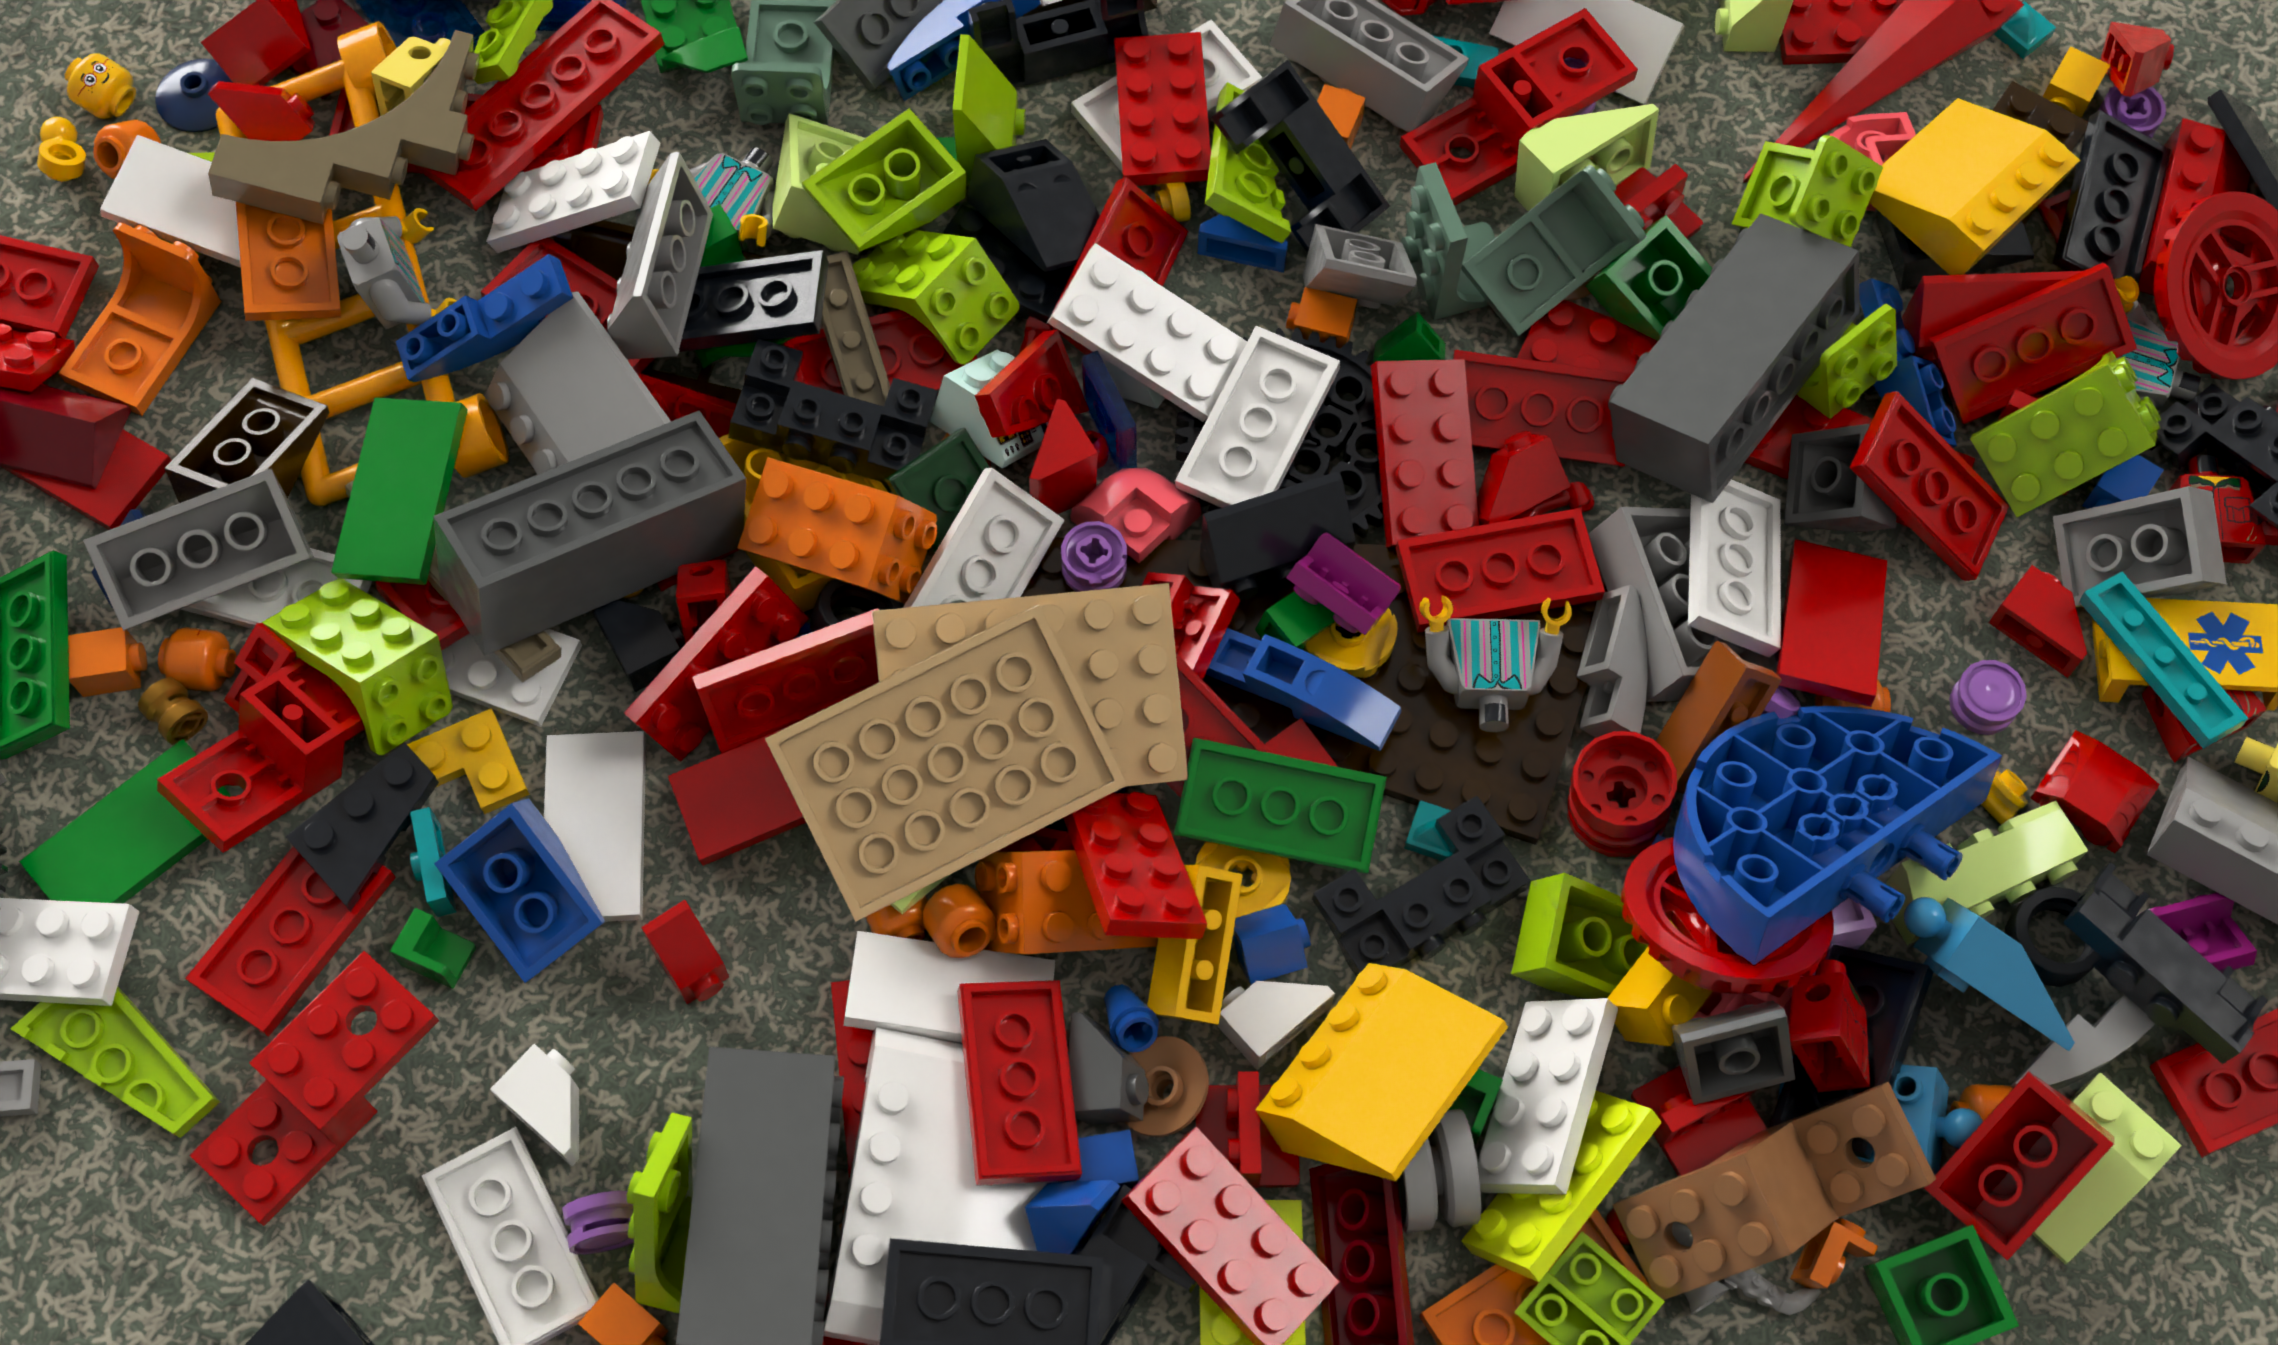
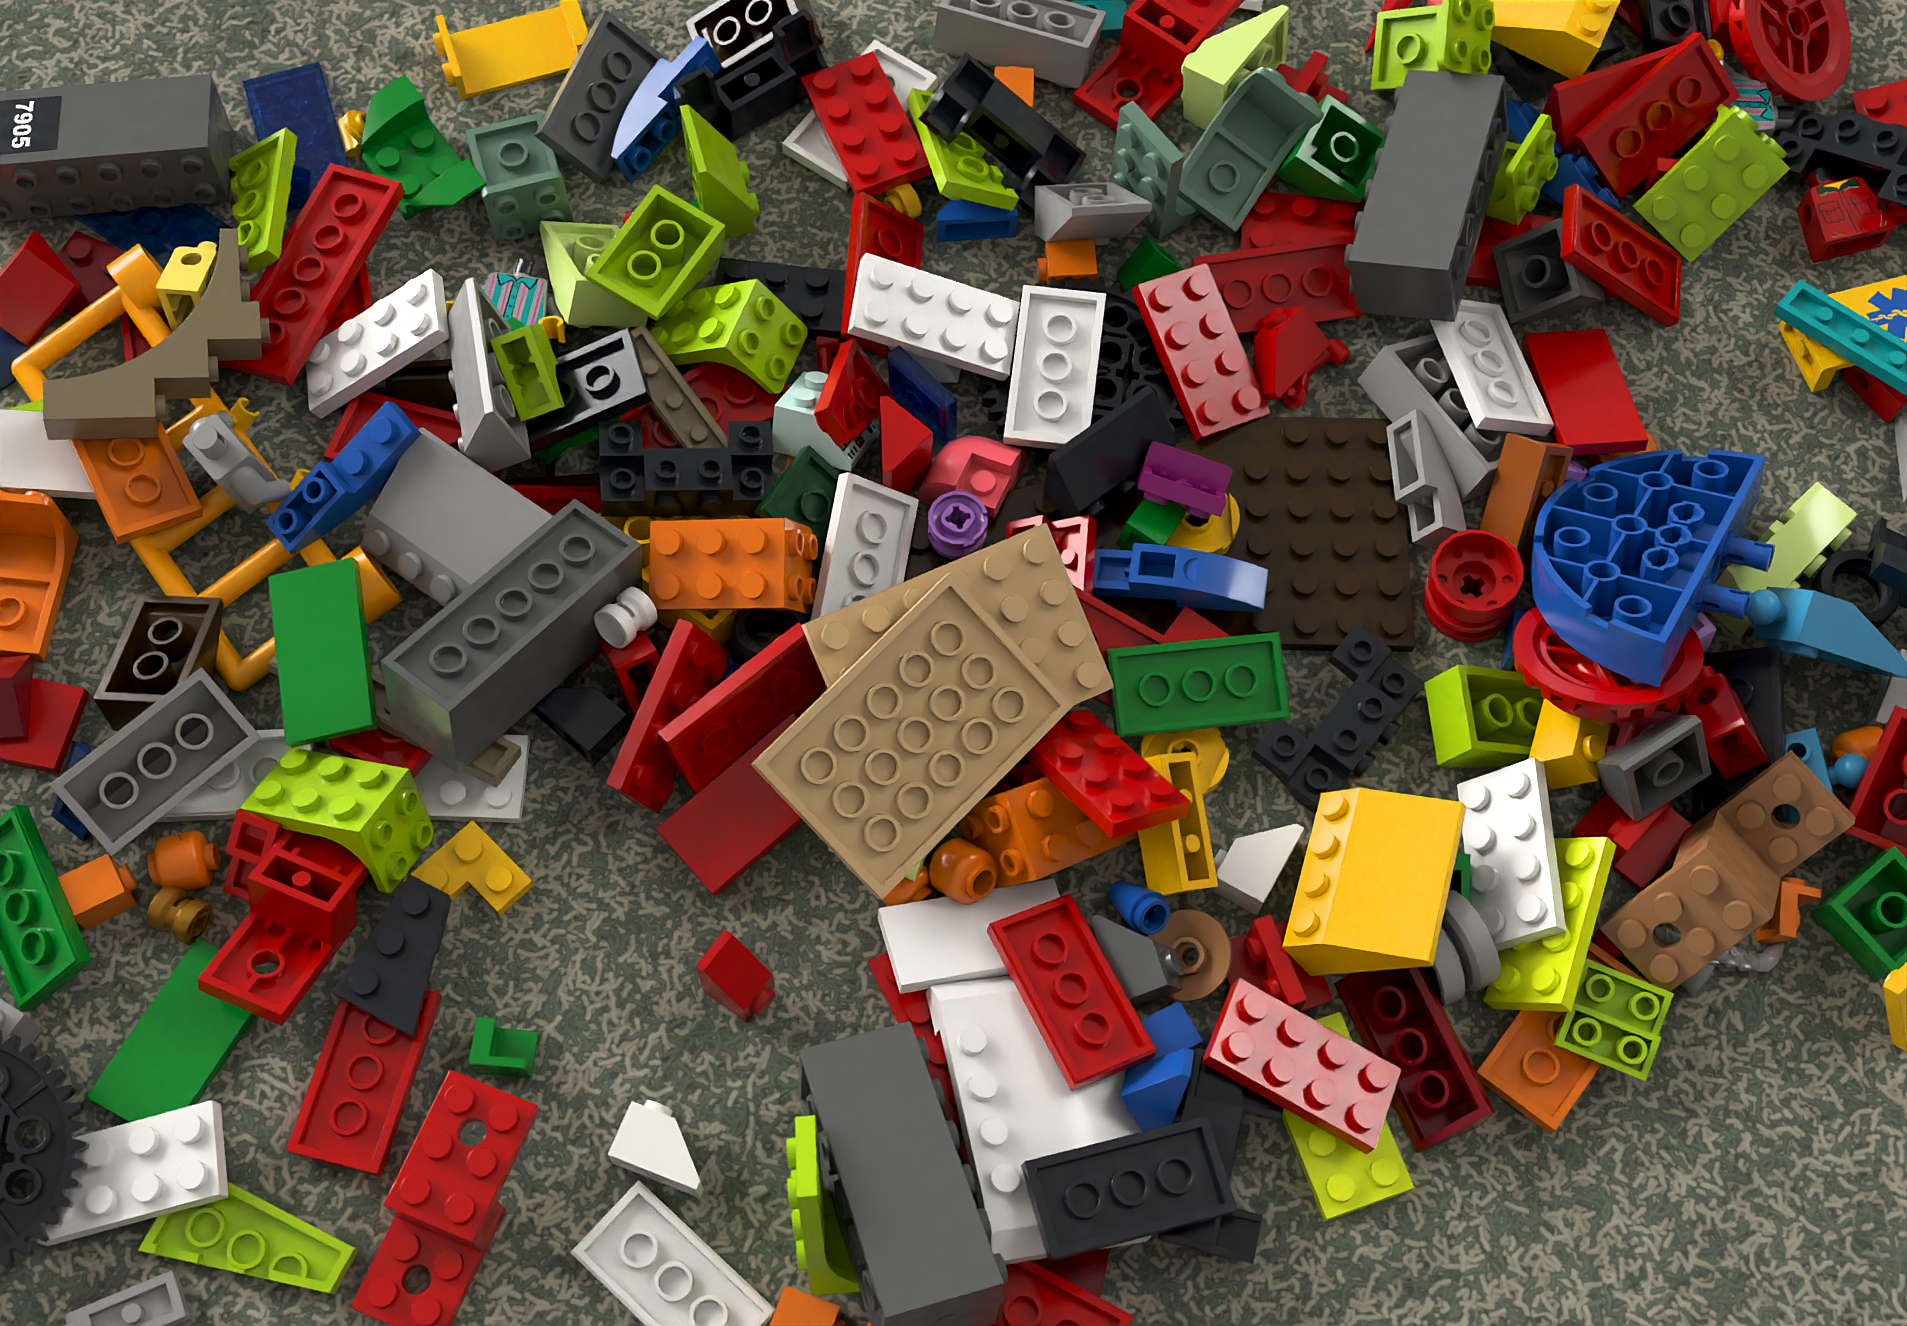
camera: 20 degrees left, 0 degrees up
(264, 111) = (61, 352): red slope -> none
(429, 850) = (471, 974): teal plate -> none
(522, 888) = (568, 970): blue slope -> none
(598, 1222) = (751, 1237): medium lavender wheel -> none
(599, 814) = (604, 896): white tile -> none
(705, 264) = (529, 370): none -> lime arch
(709, 549) = (629, 614): none -> white wheel
(1034, 201) = (788, 235): black slope -> none
(1270, 943) = (1234, 804): blue brick -> none
(1424, 836) = (1321, 673): teal tile -> none
(1492, 661) = (1326, 507): light grey torso -> none
(1502, 567) = (1300, 430): red plate -> none
(1987, 697) = (1726, 415): medium lavender wheel -> none
(2005, 796) = (1772, 493): yellow plate -> none
(2043, 620) = (1746, 340): red slope -> none
(2096, 790) = (1841, 462): red slope -> none
(2124, 482) = (1767, 218): blue brick -> none
(2158, 540) = (1817, 244): light grey slope -> none

